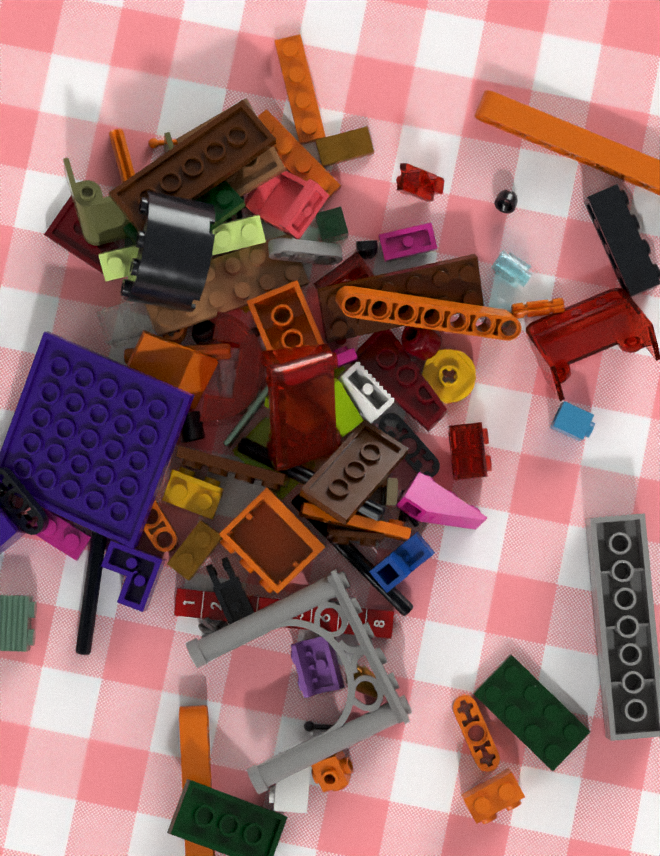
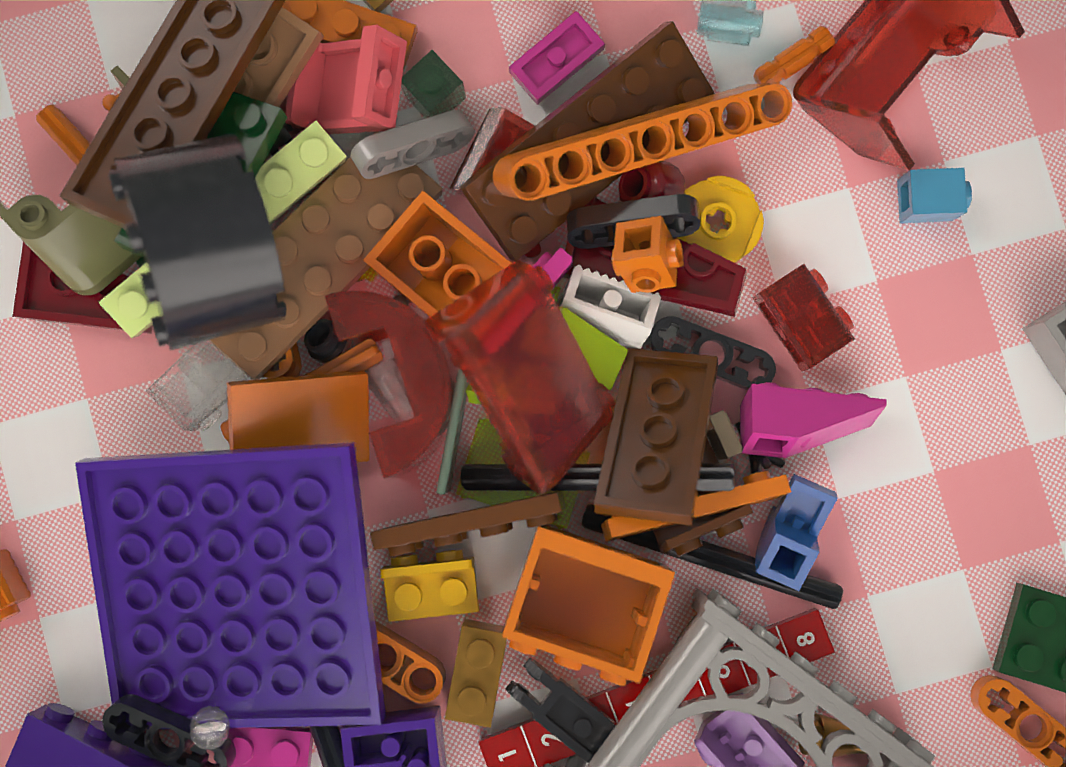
camera: 25 degrees left, 0 degrees up
(43, 505) = (209, 734): none -> clear hinge
(192, 428) = (376, 493): black beam -> none
(367, 249) = (502, 94): black hinge -> none
(396, 375) = (646, 254): none -> orange brick
(400, 353) = (596, 224): none -> black beam

